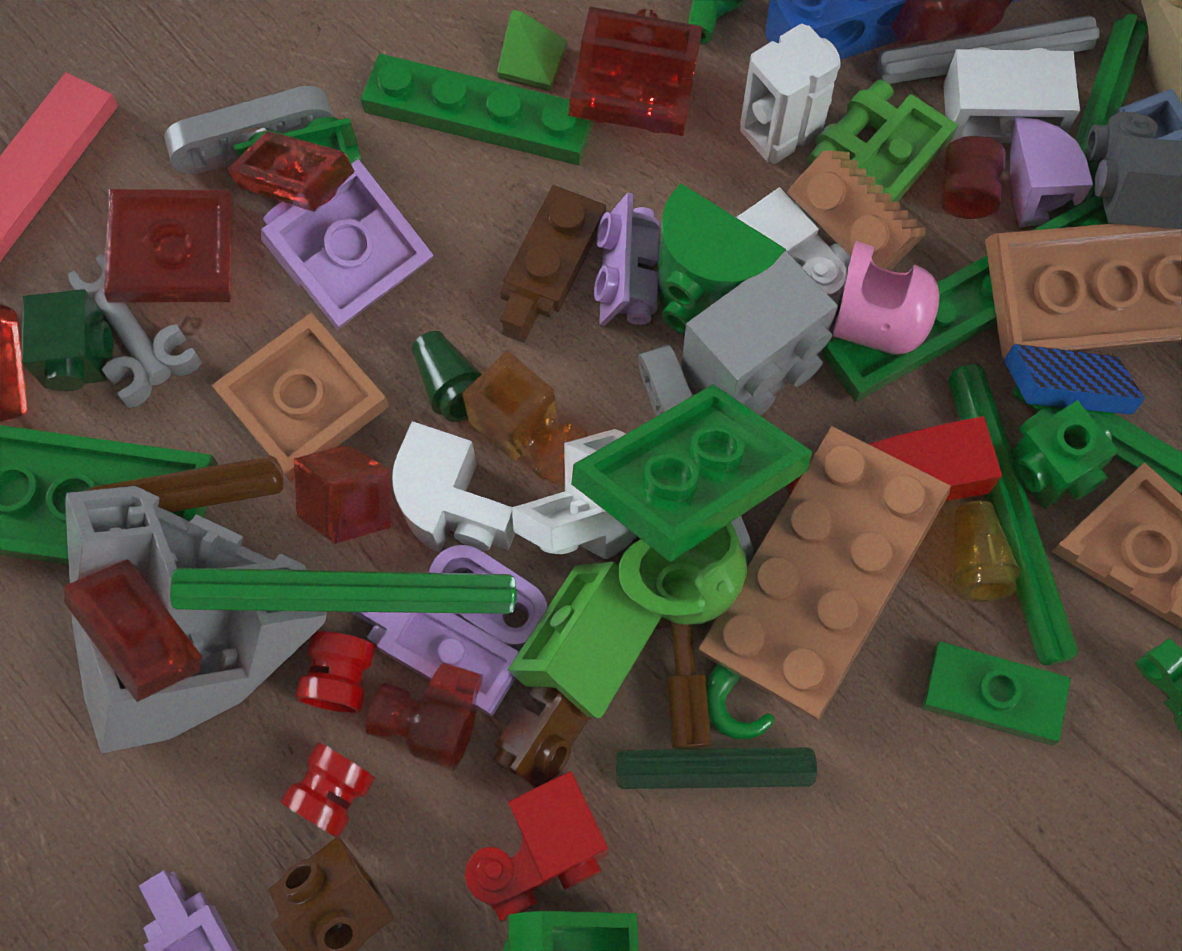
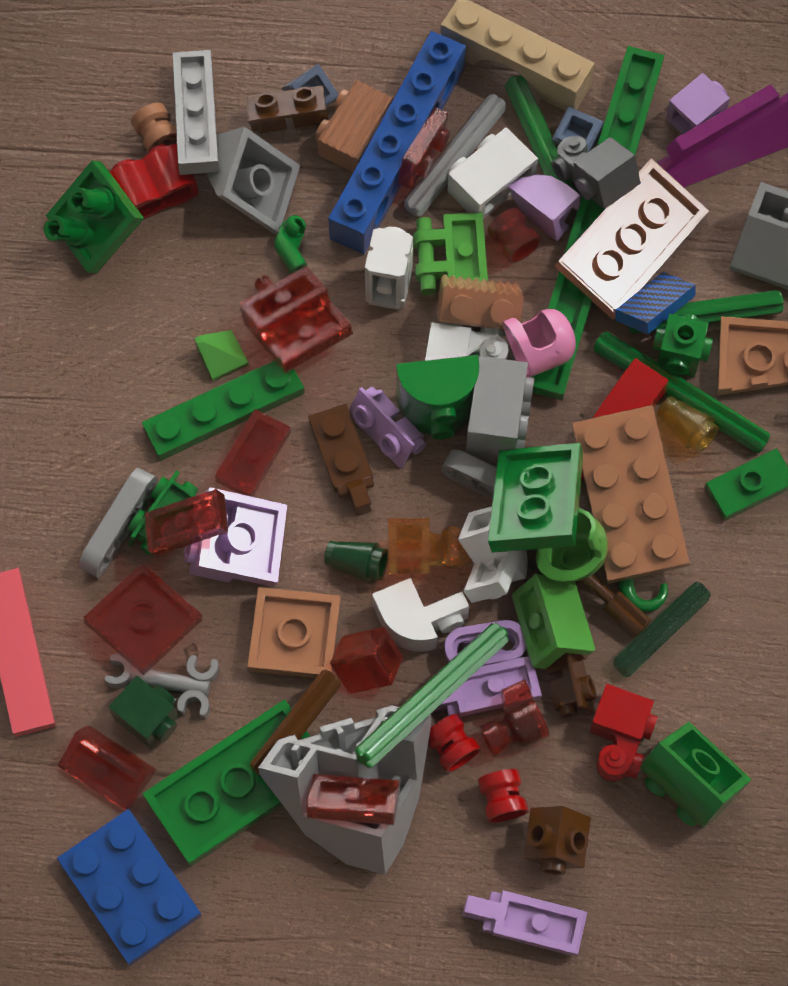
camera: 45 degrees left, 0 degrees up
(455, 175) = (253, 454): none -> clear red plate

